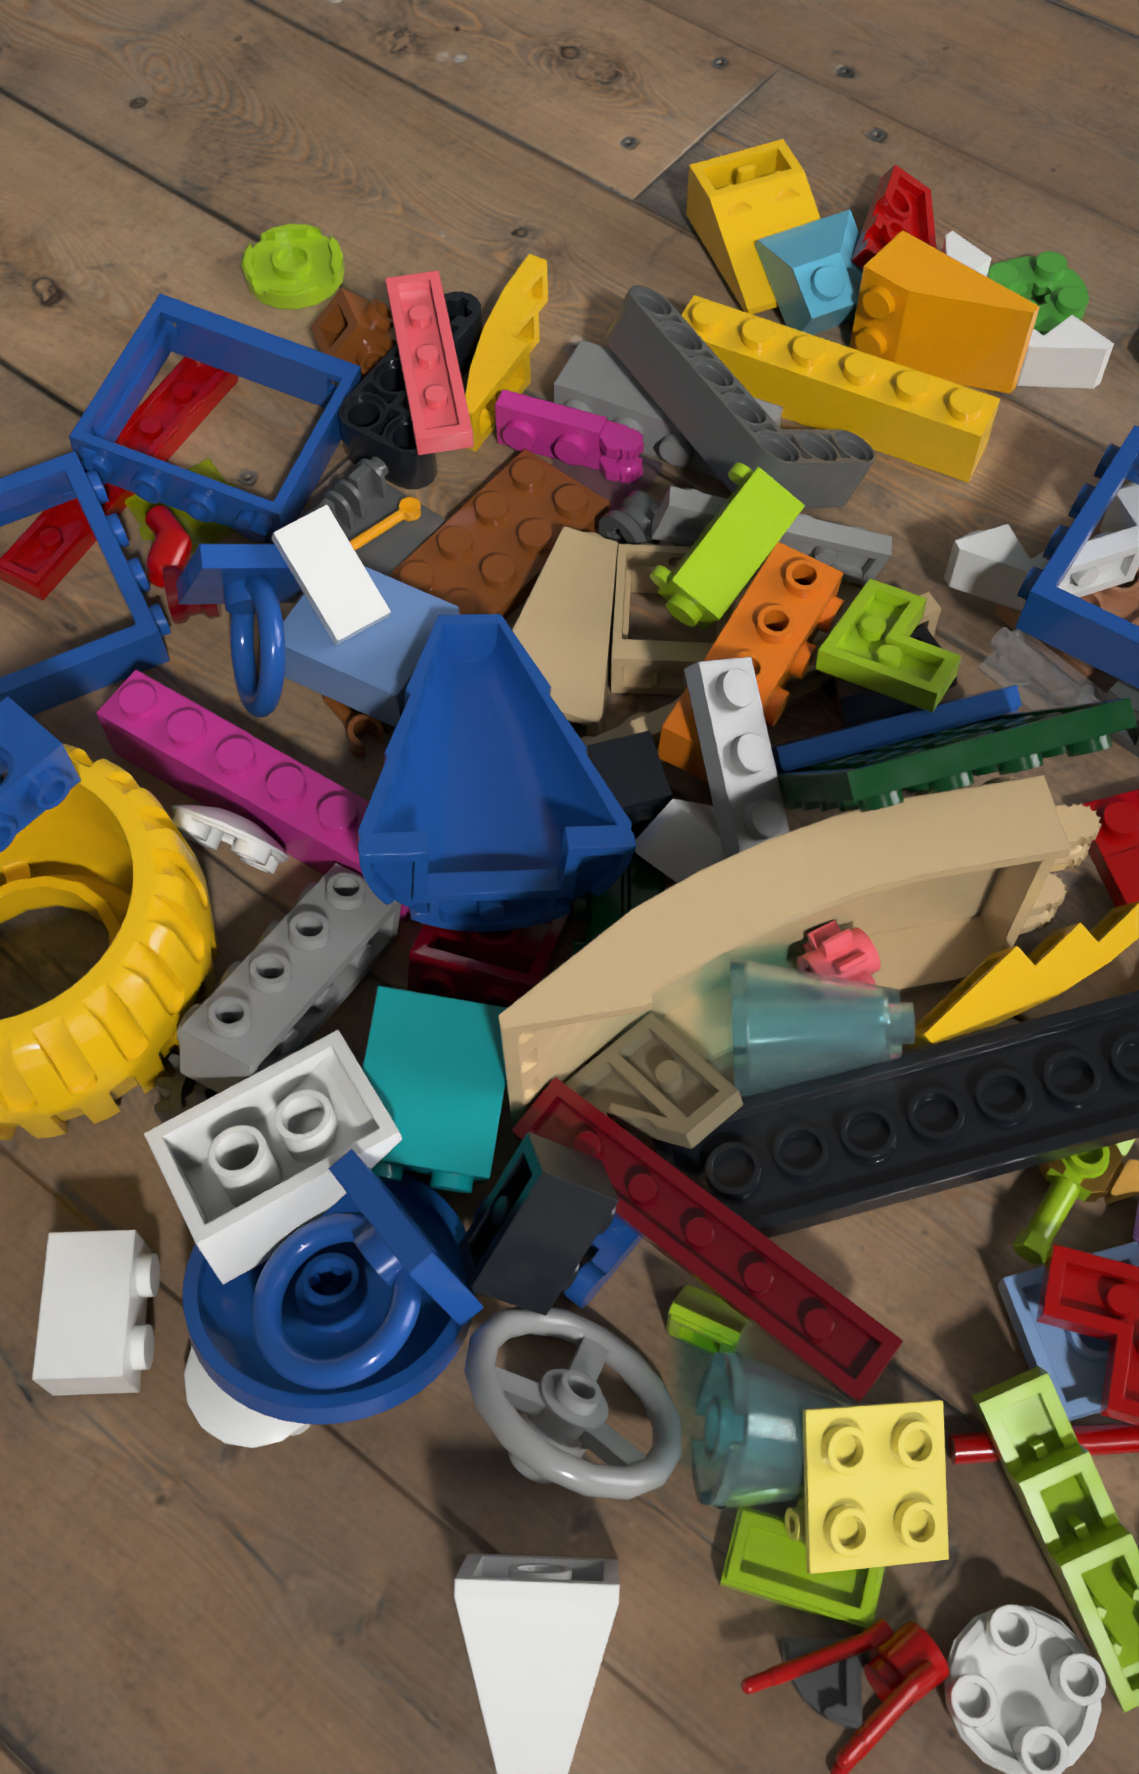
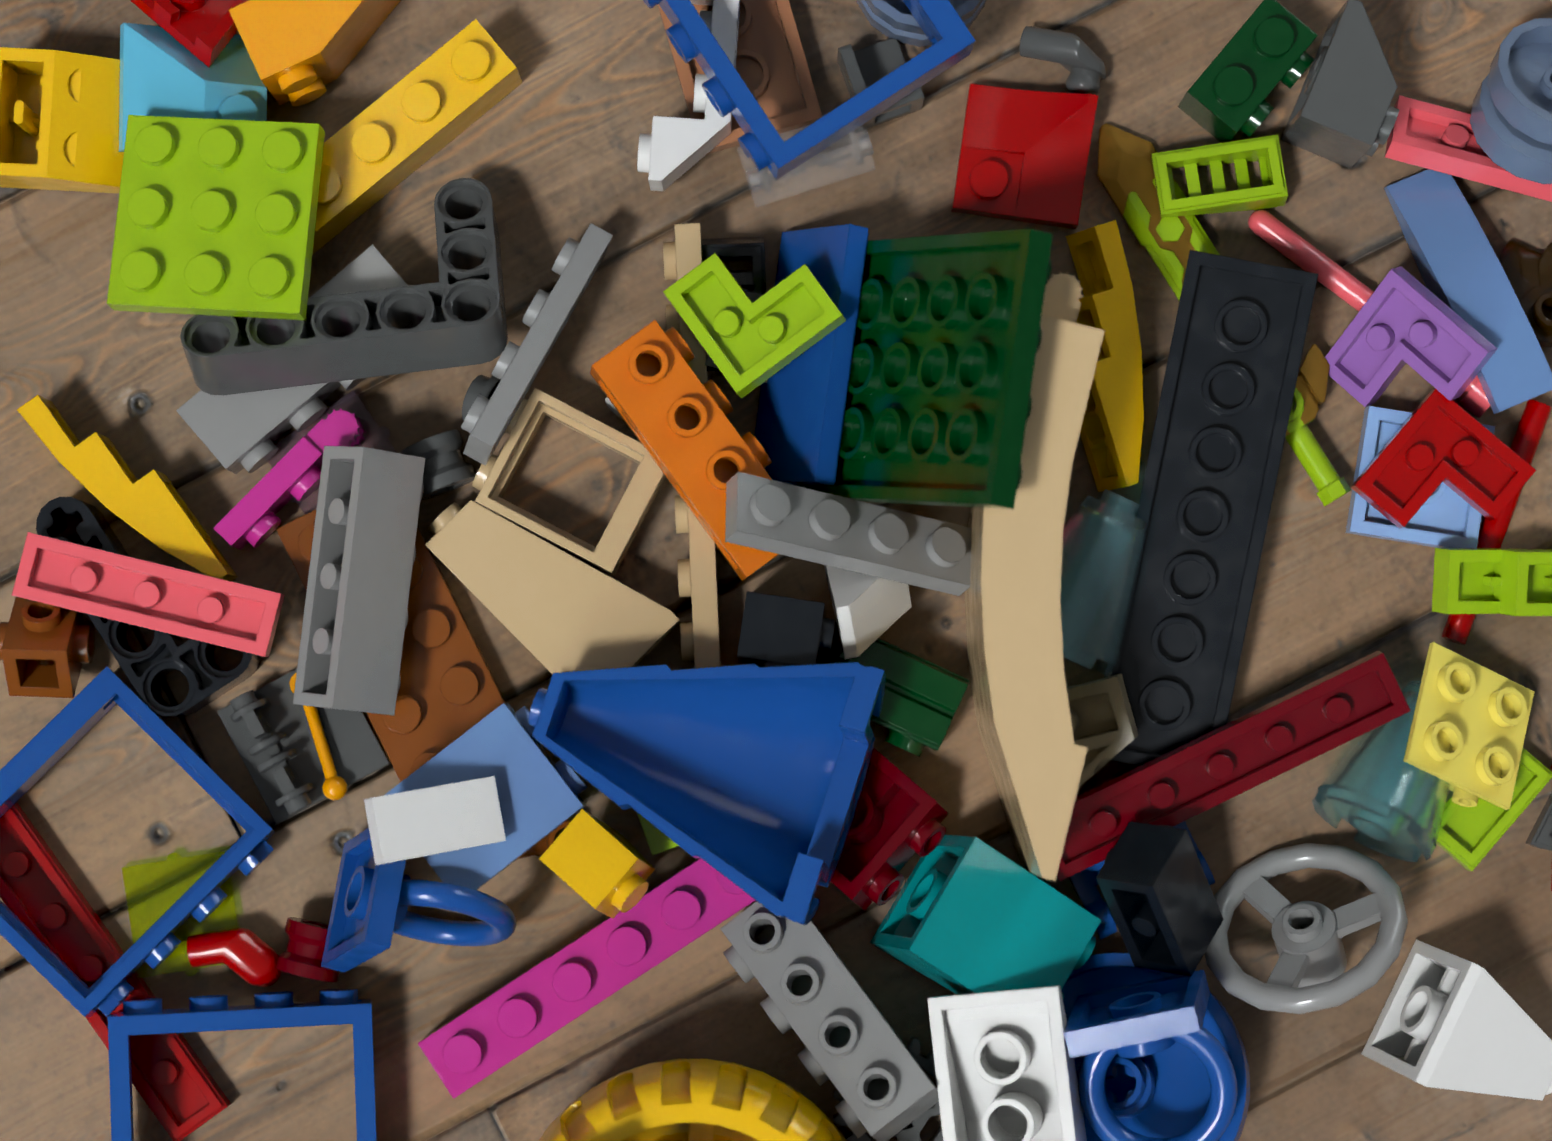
camera: 70 degrees left, 25 degrees up
(212, 825) = (644, 1015): white dish -> none
(350, 727) = (599, 865): none -> yellow slope
(511, 484) = (359, 580): none -> light grey brick
(705, 1321) = (1277, 793): lime slope -> none
(728, 548) = (571, 414): lime brick -> none
(743, 280) = (216, 217): none -> lime plate

